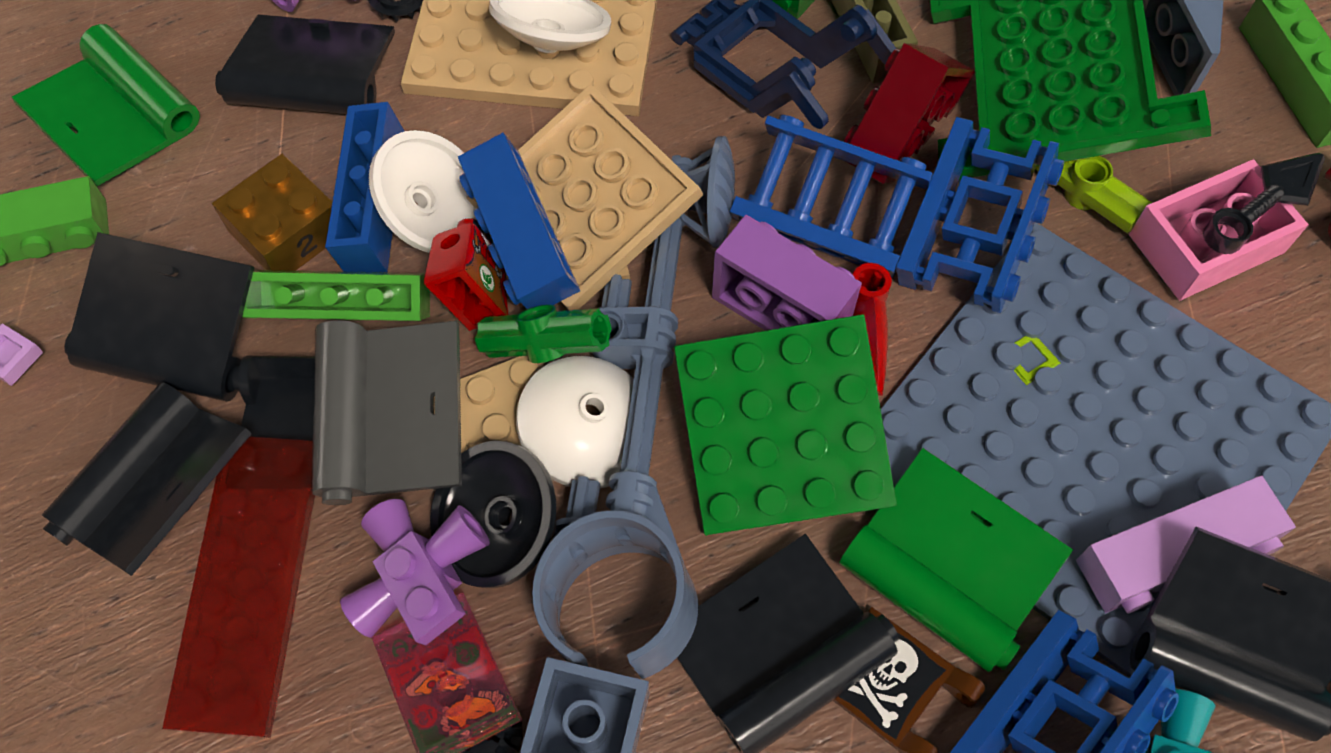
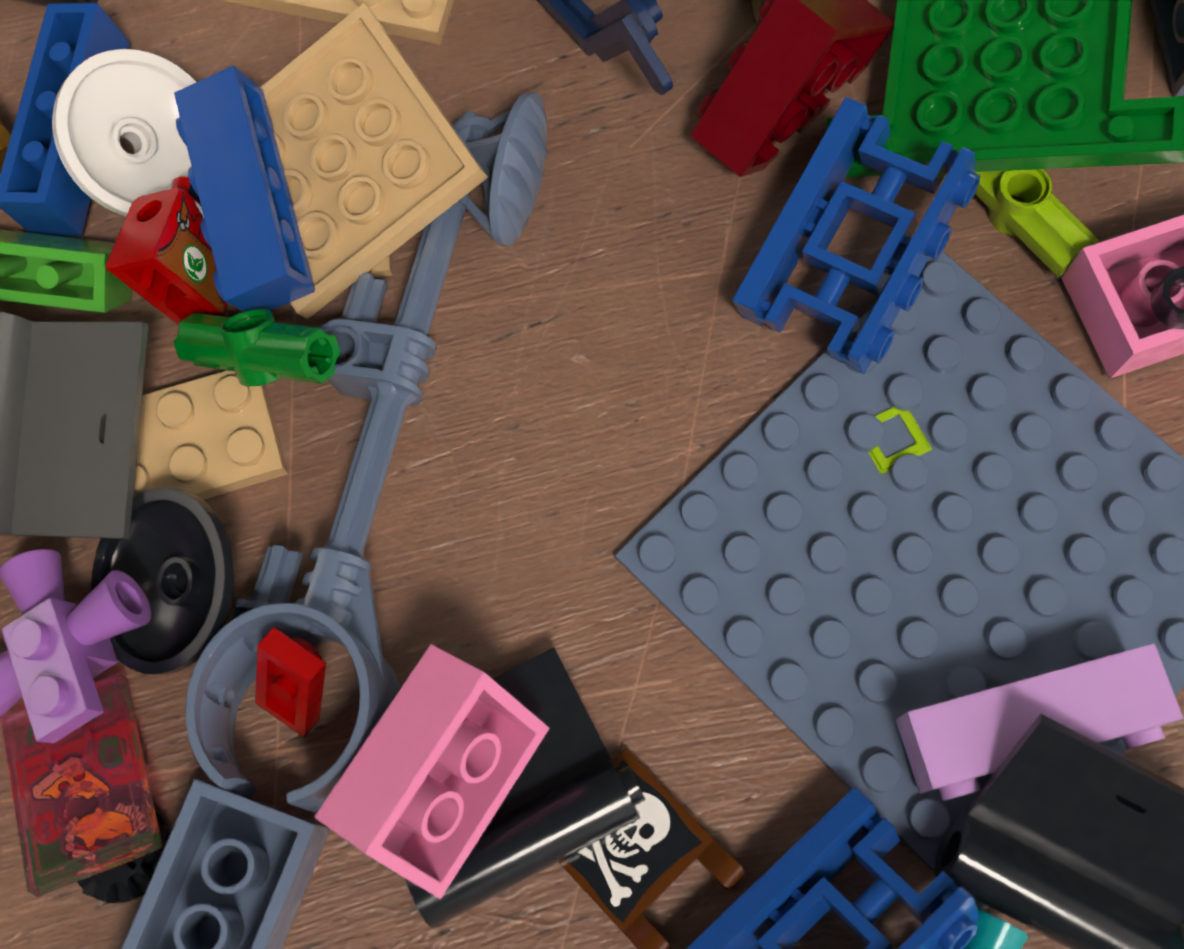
camera: 10 degrees right, 10 degrees up
(559, 428) = (254, 469): white dish -> none
(607, 578) = (290, 680): none -> red plate
(739, 626) = (433, 771): none -> bright pink brick
(778, 280) = (579, 313): medium lavender brick -> none
(785, 425) = (545, 505): green plate -> none
(837, 238) = (617, 220): blue fence -> none
(872, 303) = (691, 370): red piece -> none
(956, 560) = (731, 711): green door -> none

